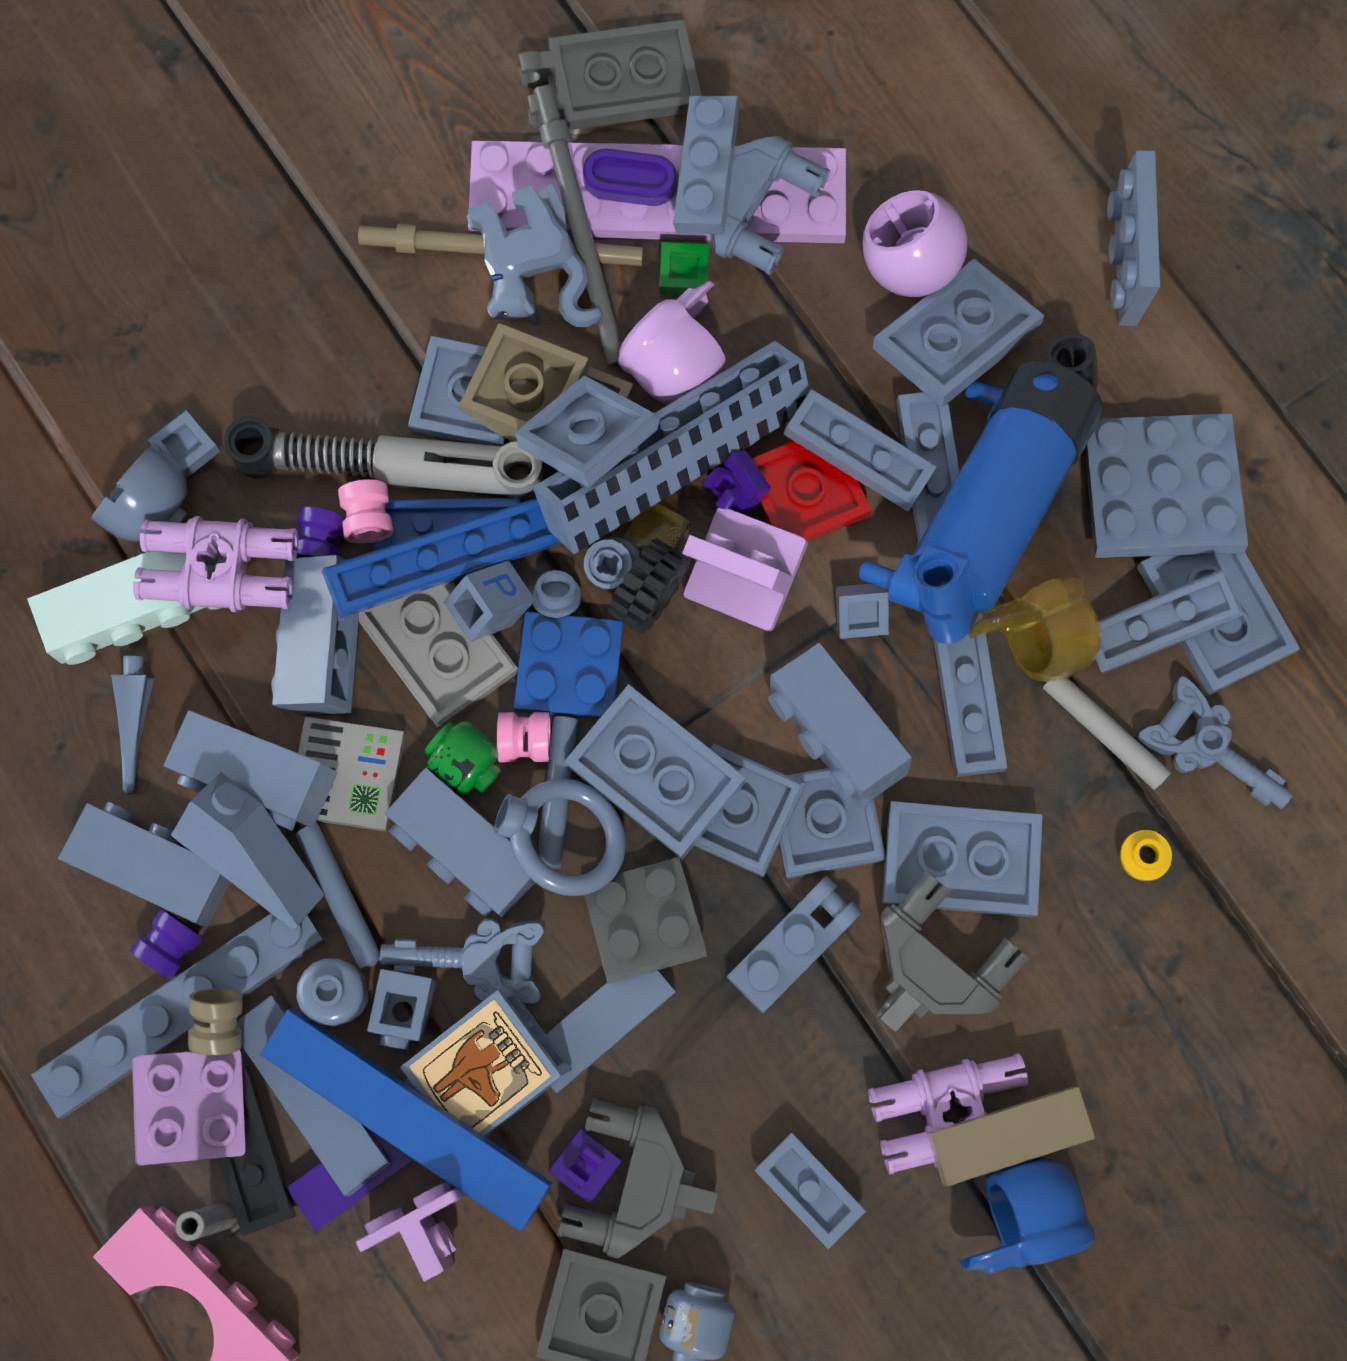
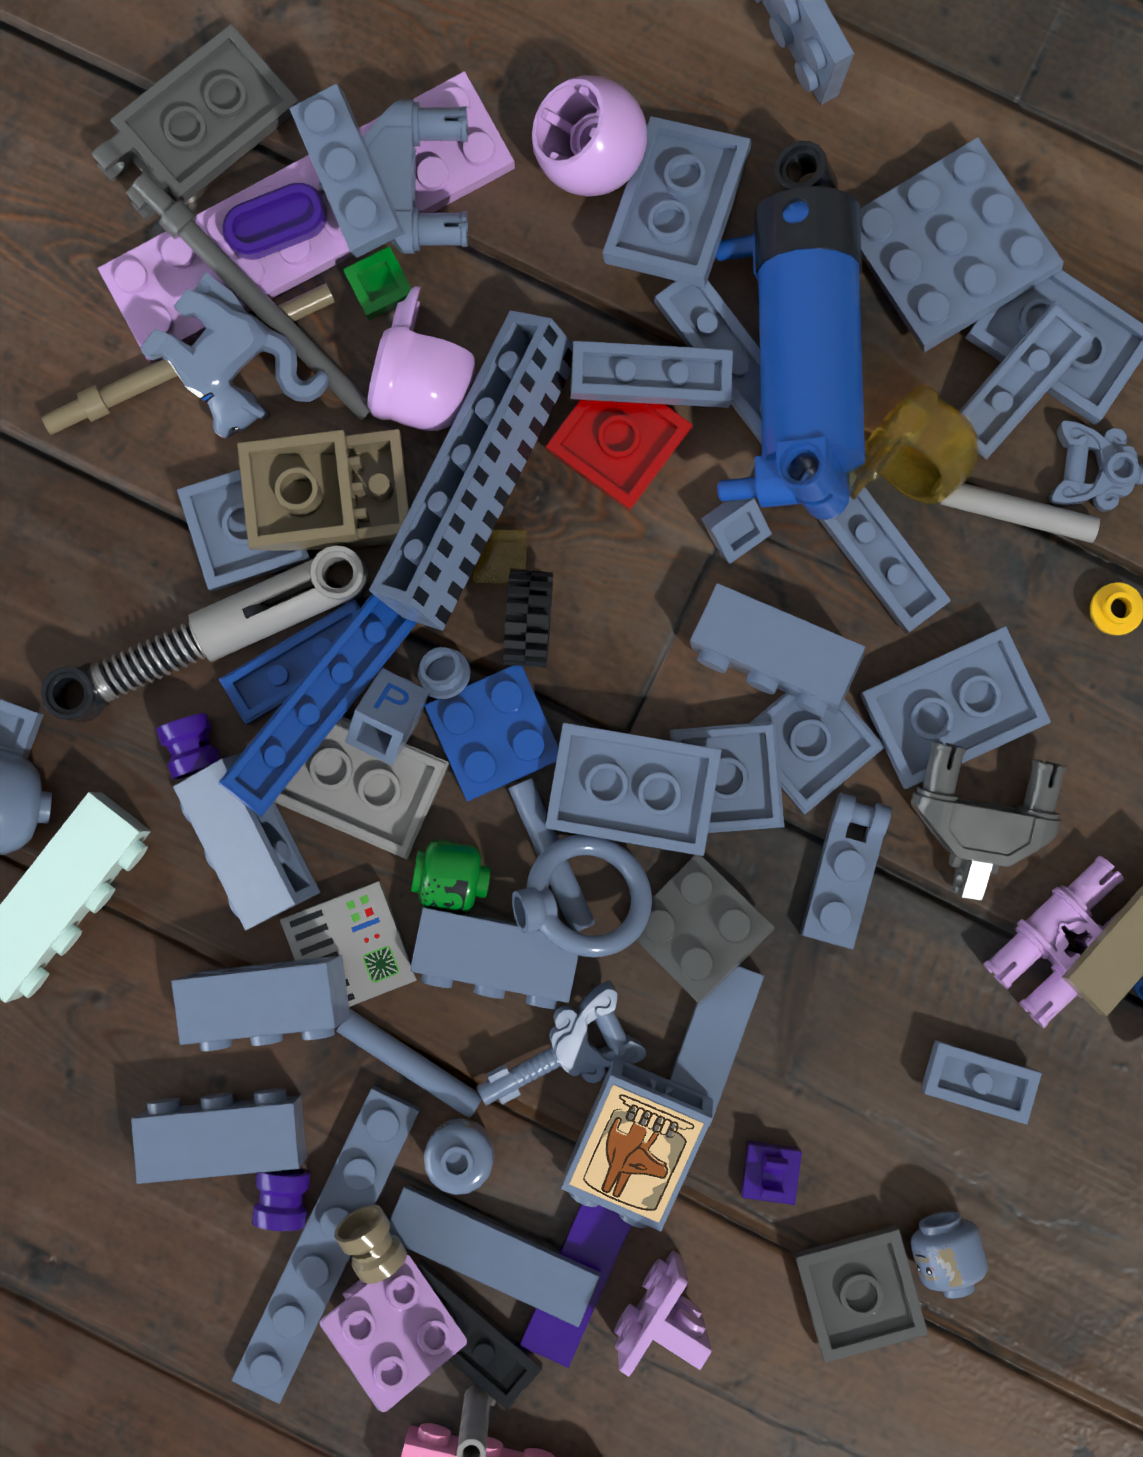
camera: 30 degrees left, 10 degrees up
(131, 698) = (108, 994): sand blue piece -> none
(203, 544) = (88, 821): lavender pin -> none
(248, 849) = (307, 1076): sand blue slope -> none
(365, 511) = (220, 698): bright pink wheel -> none
(393, 990) = (524, 1155): sand blue brick -> none
(407, 1119) = (594, 1231): blue tile -> none
(523, 736) = (493, 824): bright pink wheel -> none
(586, 431) = (388, 508): sand blue plate -> none
(619, 554) = (483, 602): sand blue wheel -> none
(654, 1186) = (843, 1158): dark grey connector -> none
(738, 484) = (554, 472): dark purple tile -> none
(744, 567) = (605, 548): lavender bracket -> none

